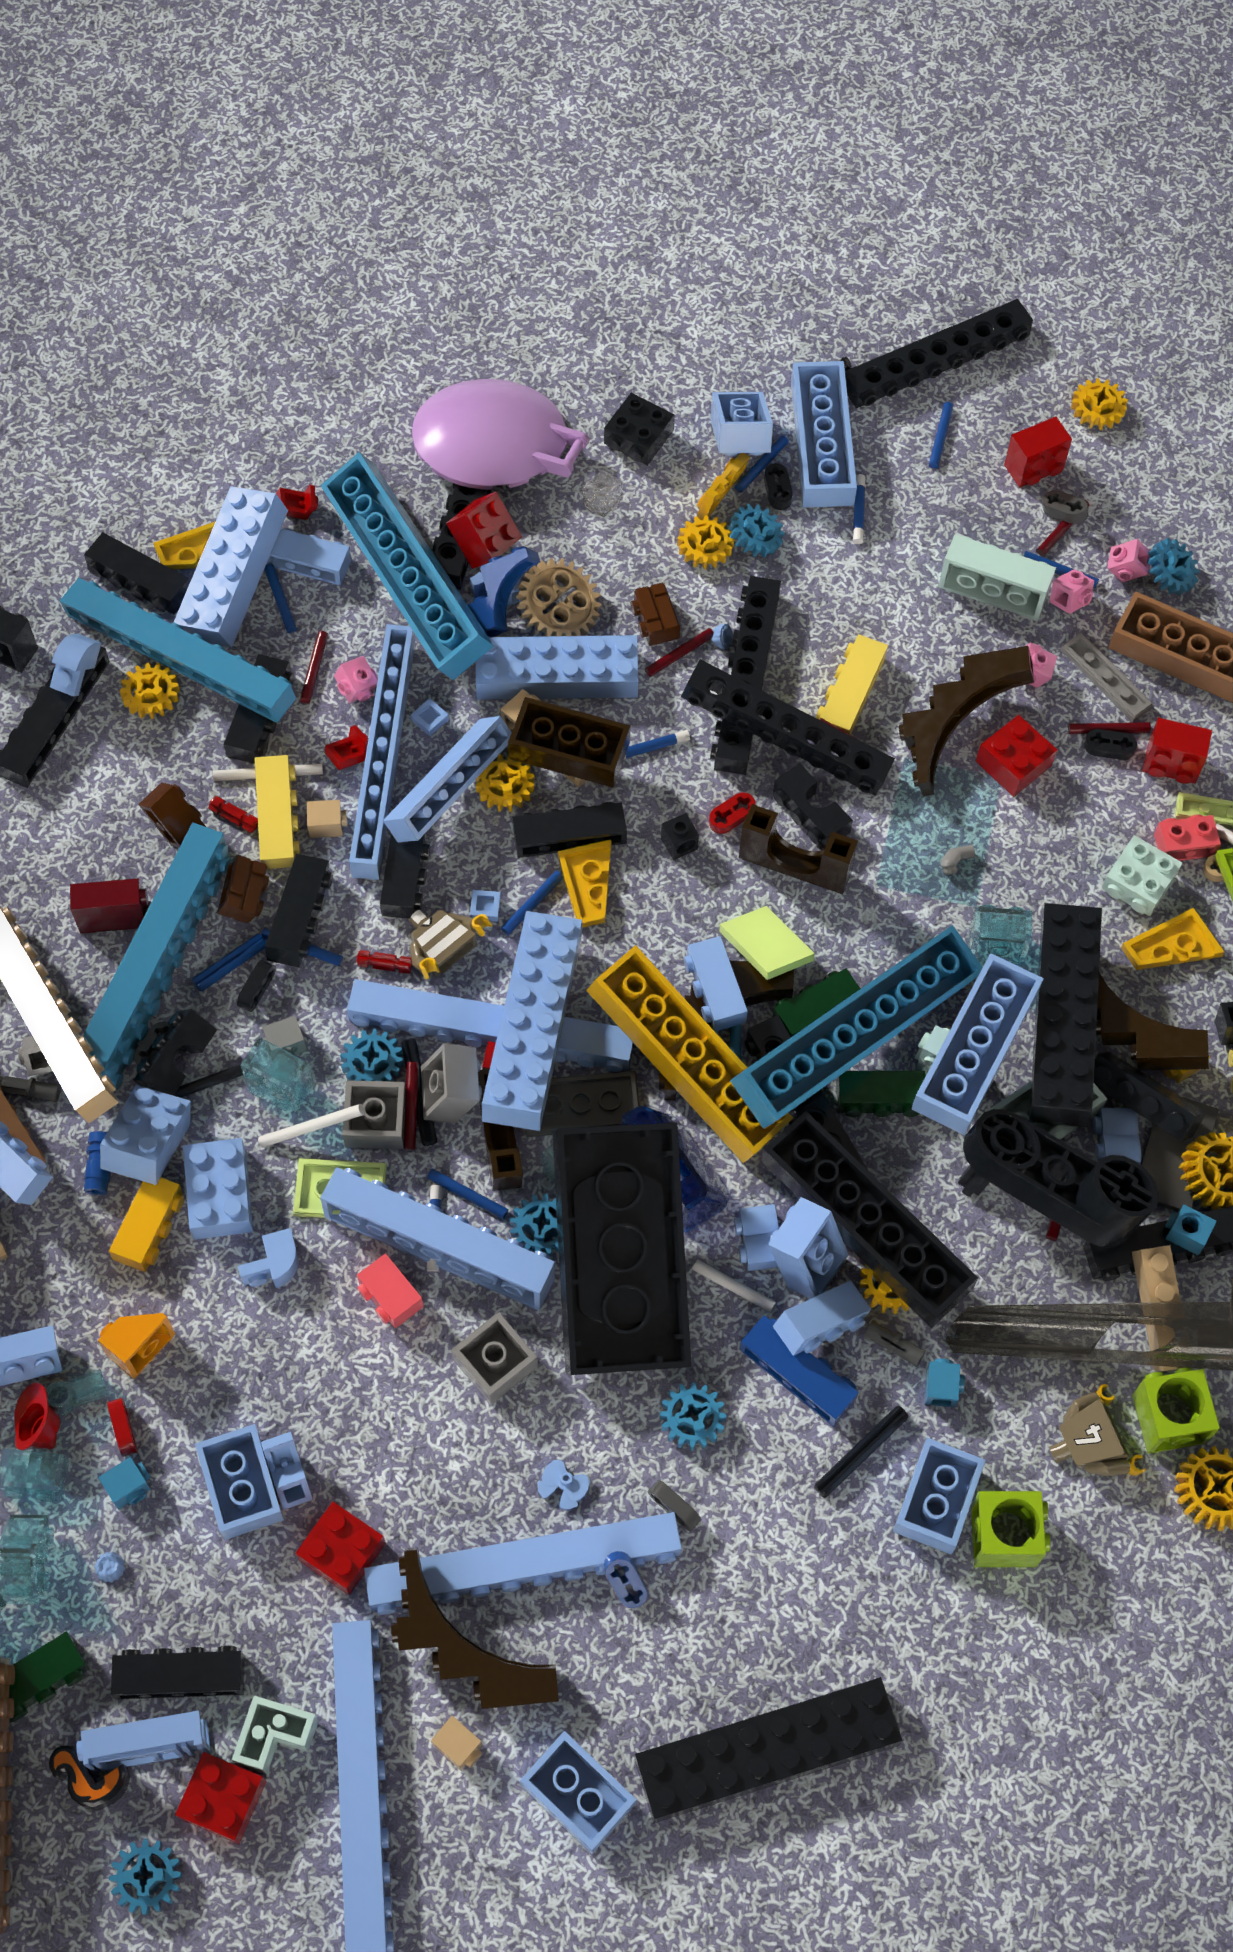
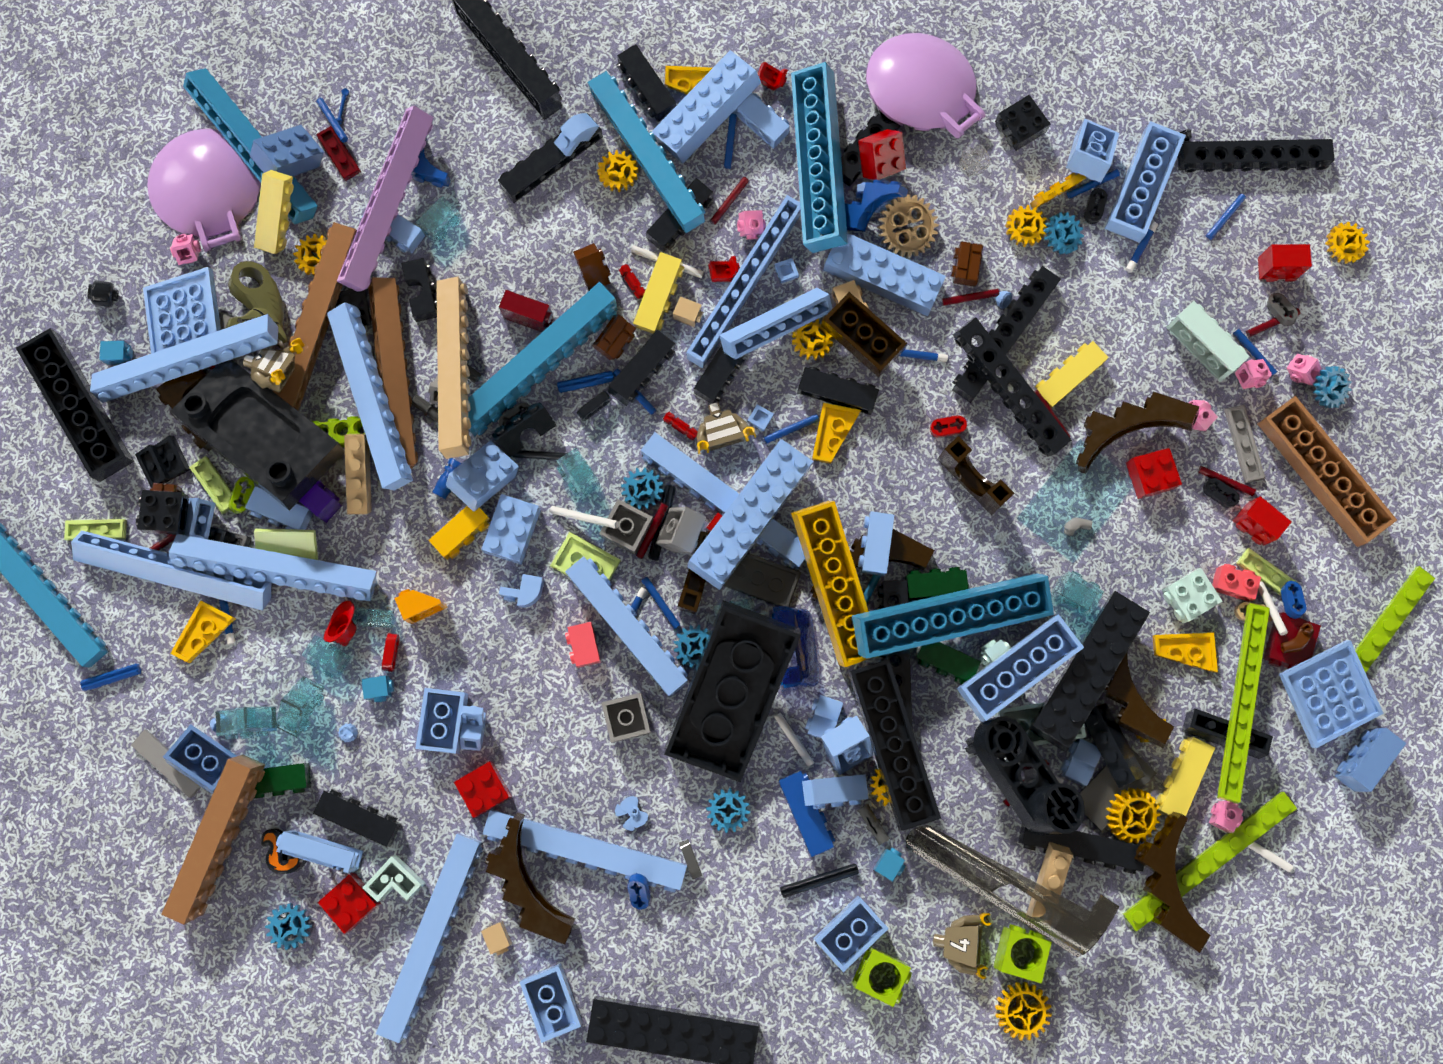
camera: 25 degrees right, 15 degrees up
(286, 1035) = (594, 449): light grey brick -> none
(679, 836) = (905, 428): black brick -> none
(766, 942) = (924, 528): yellowish green tile -> none
(794, 790) = (1002, 463): black arch -> none
(1199, 1222) = (1101, 850): dark azure brick -> none

